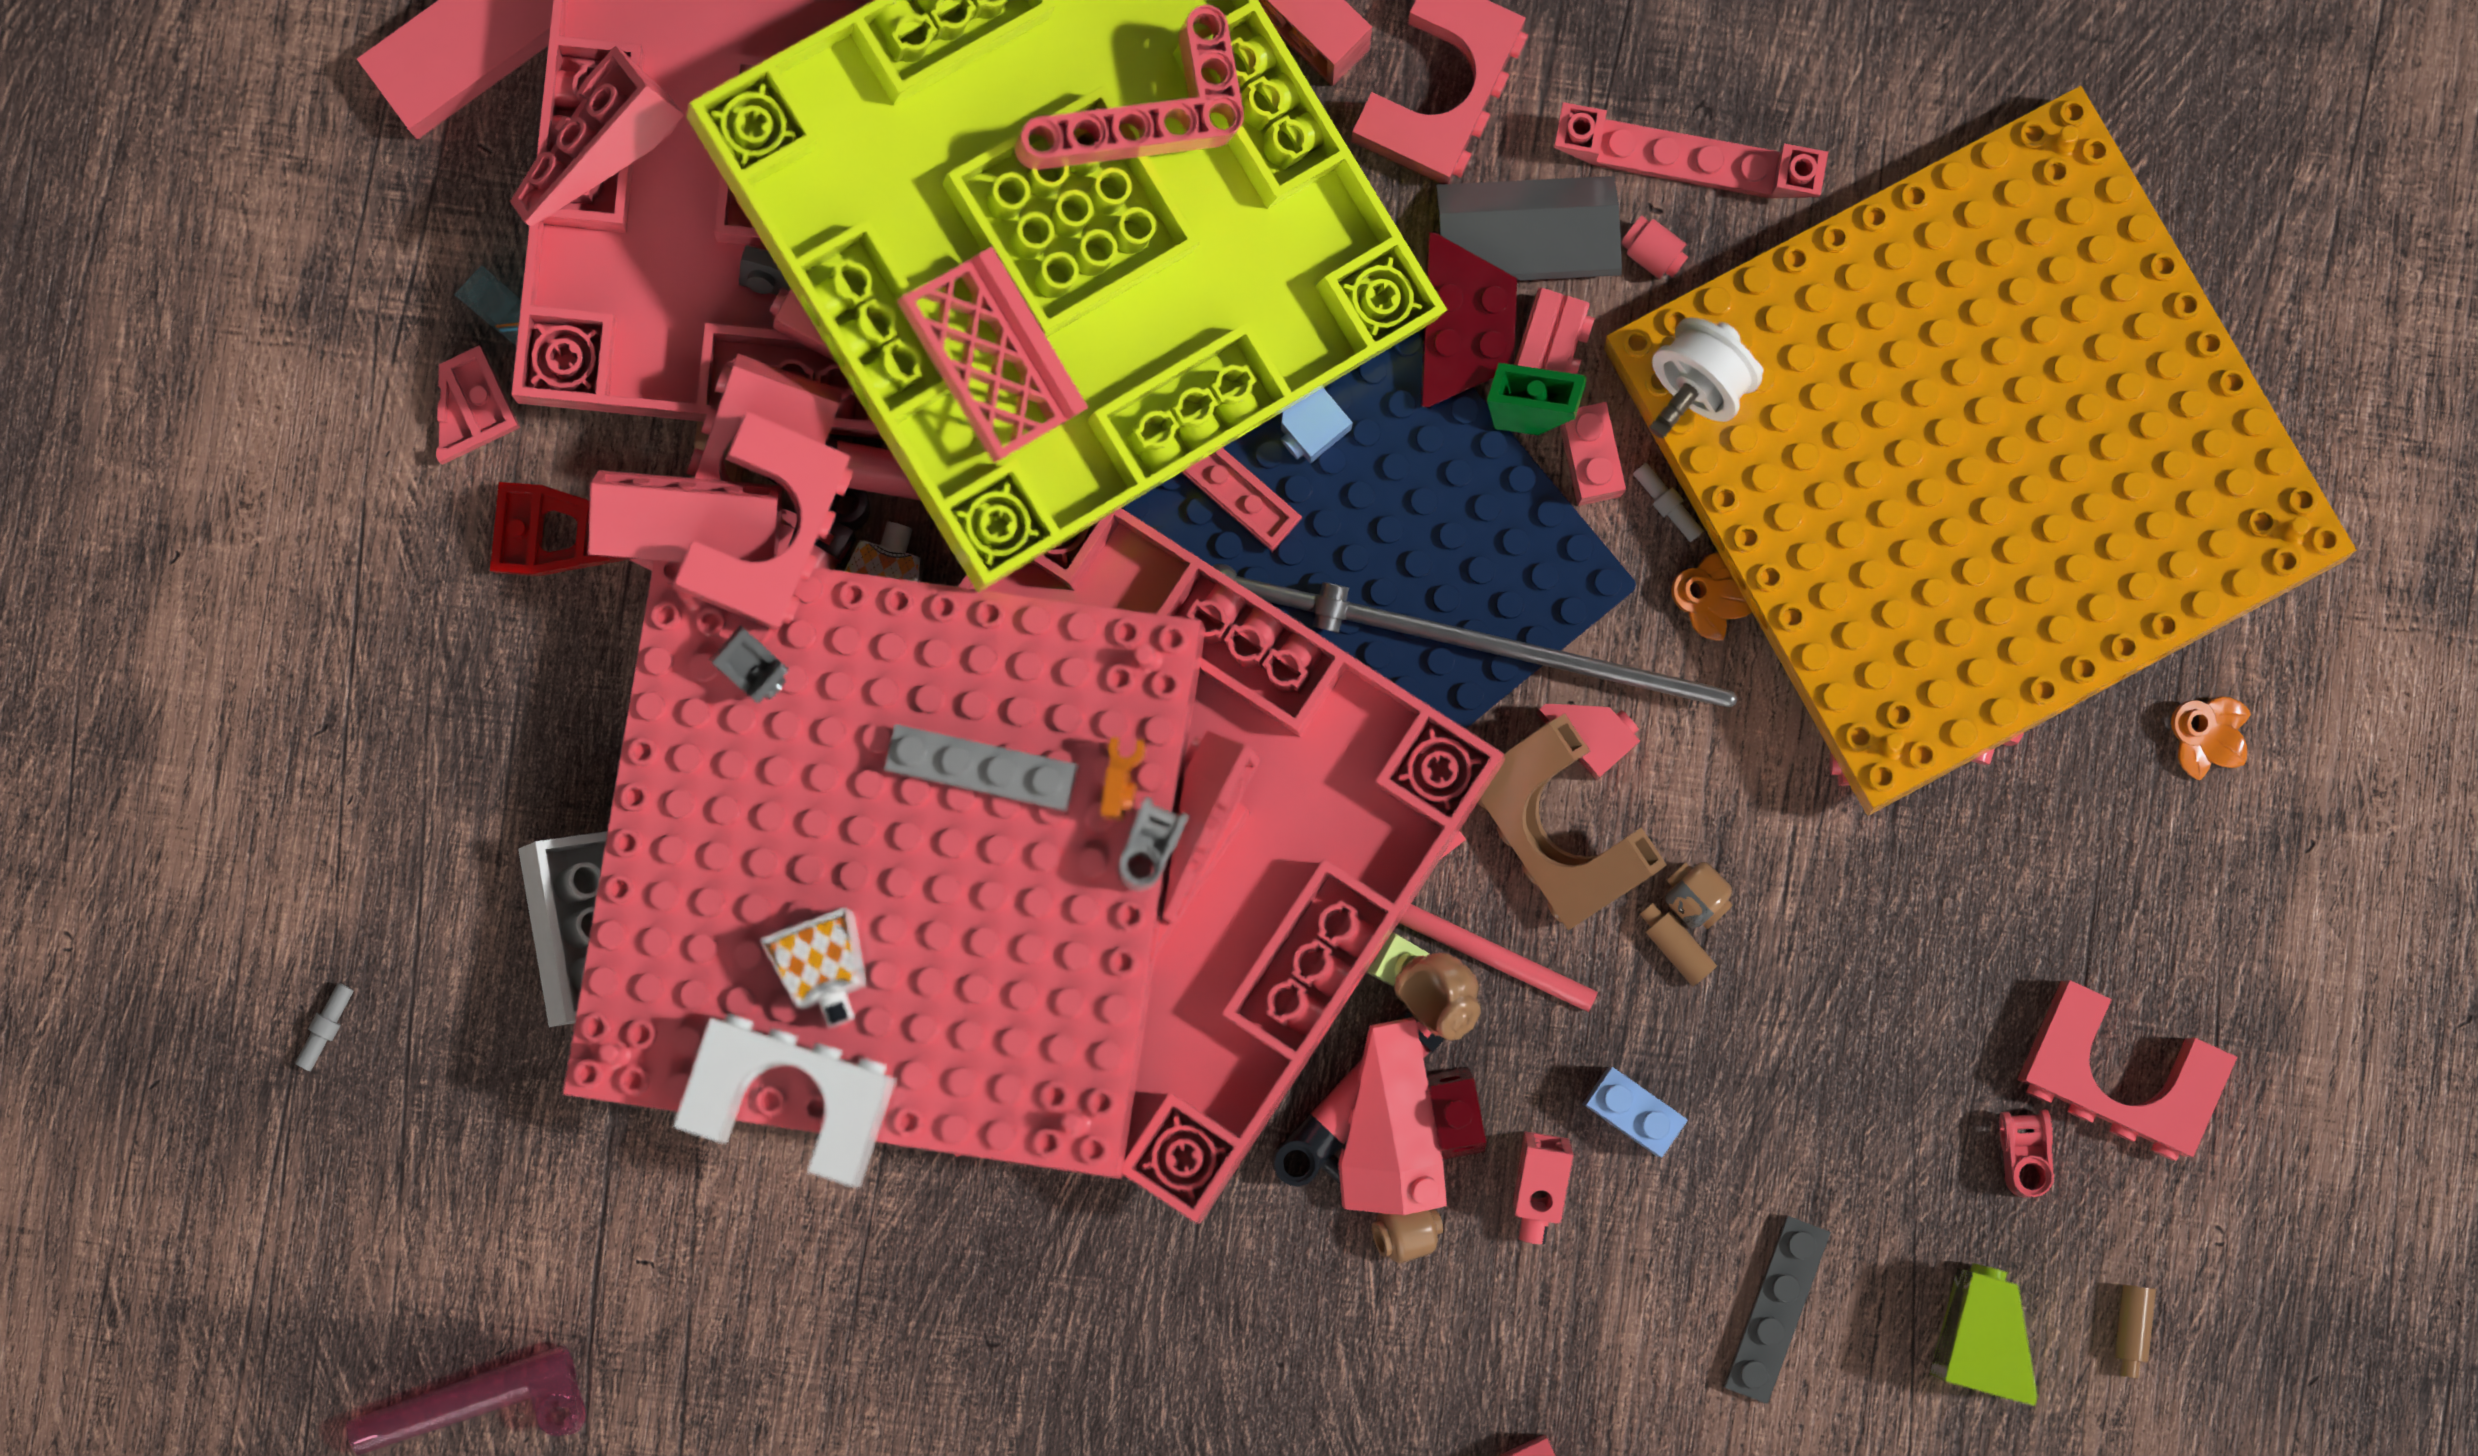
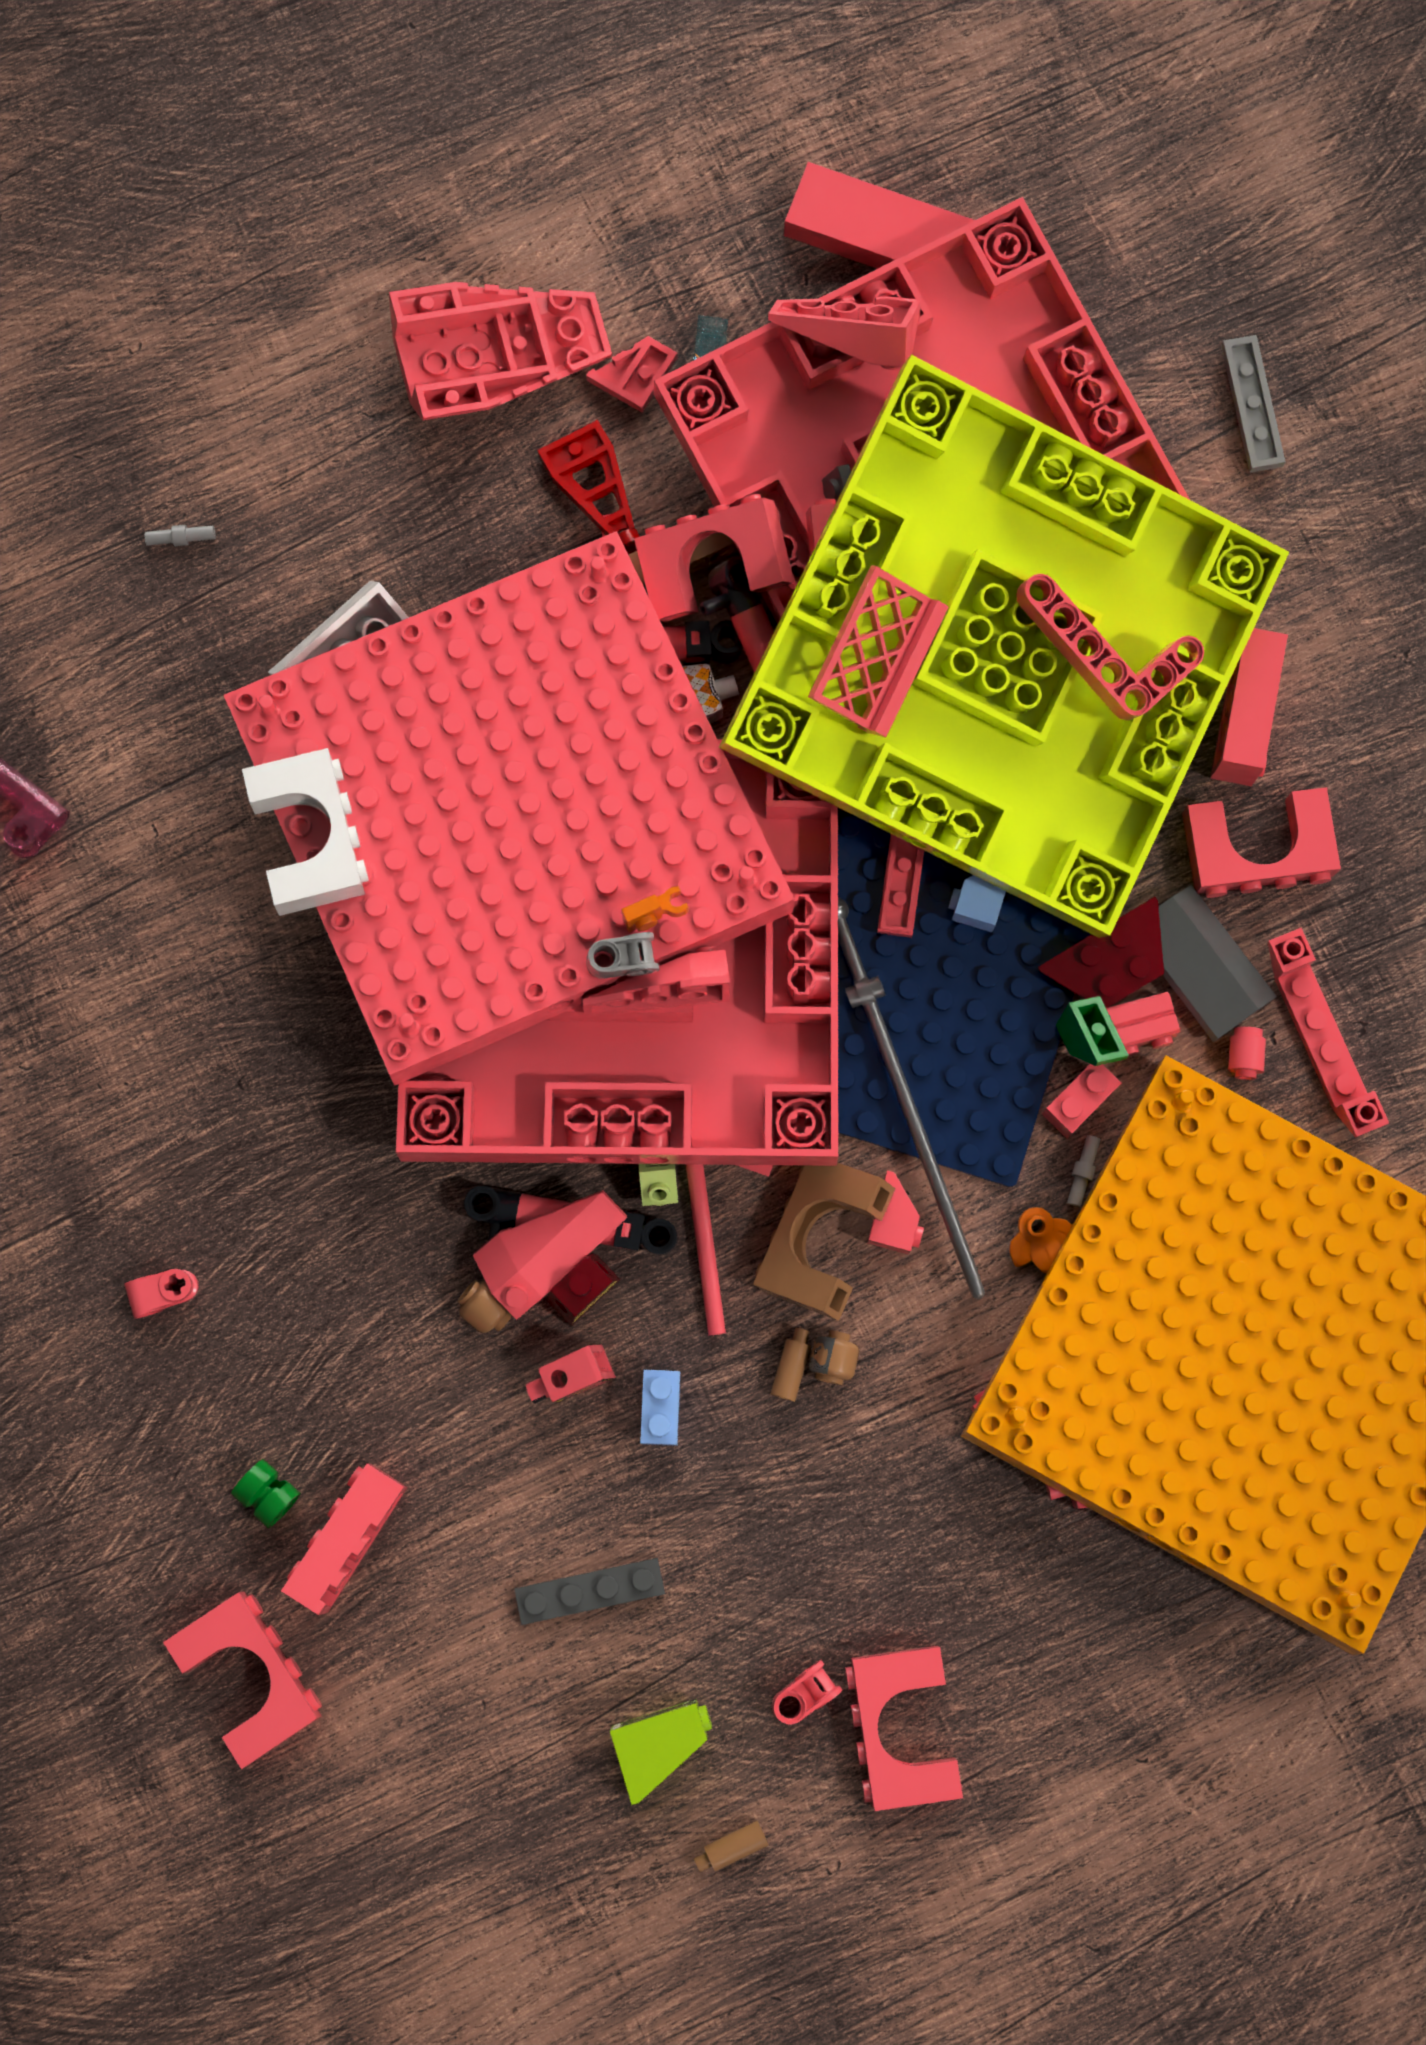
camera: 55 degrees right, 5 degrees down
(335, 545) = (488, 345): none -> coral wedge
(663, 514) = (644, 535): coral brick -> none
(750, 665) = (575, 632): dark grey bracket -> none
(811, 478) = (632, 610): coral arch -> none
(820, 963) = (409, 797): torso -> none
(981, 767) = (604, 819): light grey plate -> none
(1440, 994) = (653, 1222): medium nougat hair -> none
(1704, 372) = (1183, 1128): white wheel -> none
(2216, 737) = (1172, 1646): orange plate -> none

